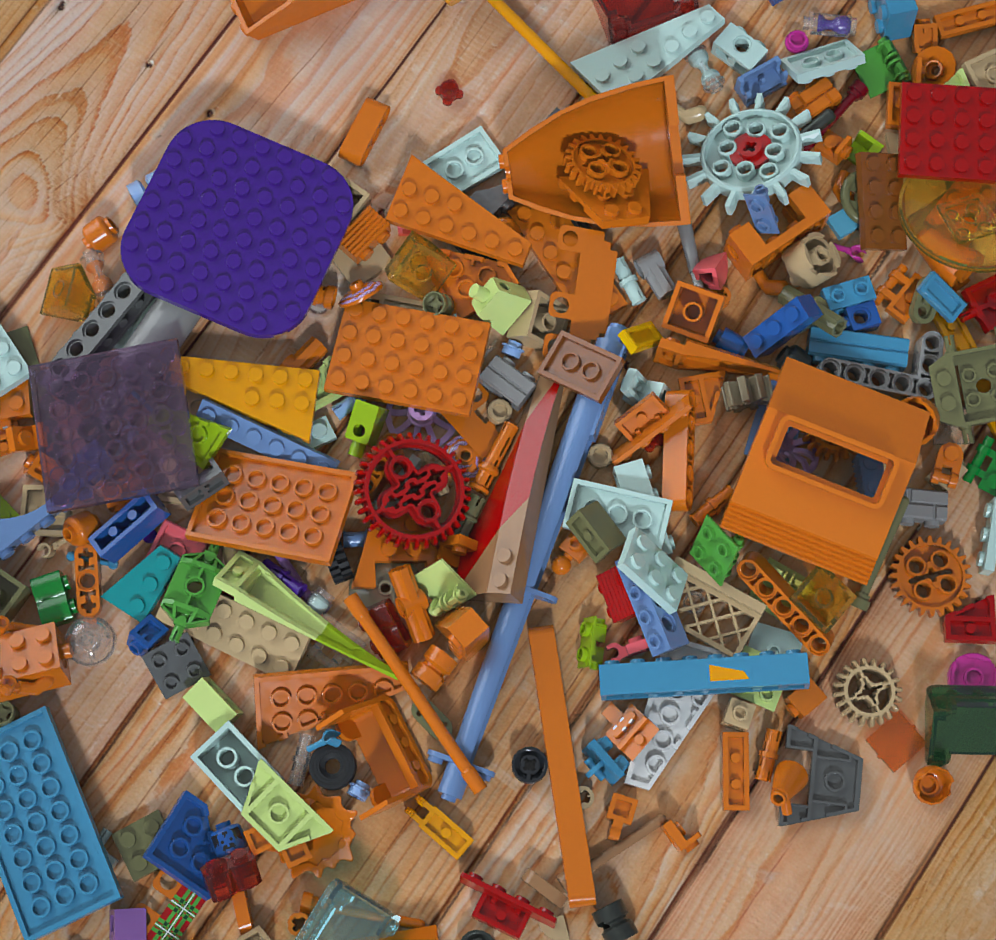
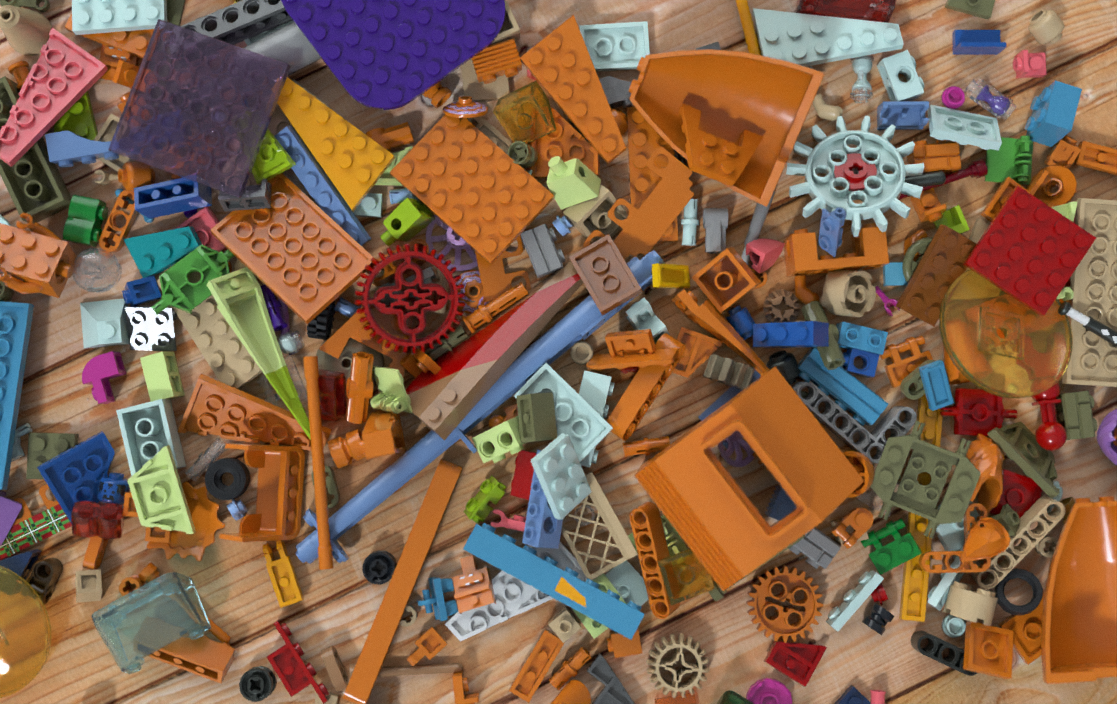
camera: 25 degrees right, 10 degrees up
(126, 687) = (104, 323): none -> light aqua slope
(149, 731) = (98, 373): none -> dark pink brick
(329, 737) = (233, 457): dark azure hand -> none
(499, 411) = (522, 270): tan tile -> none
(571, 573) = (500, 439): none -> yellowish green brick
(602, 165) = (723, 114): orange gear -> none
(716, 550) = (622, 488): bright green hinge -> none
(748, 306) = (774, 299): none -> medium nougat gear

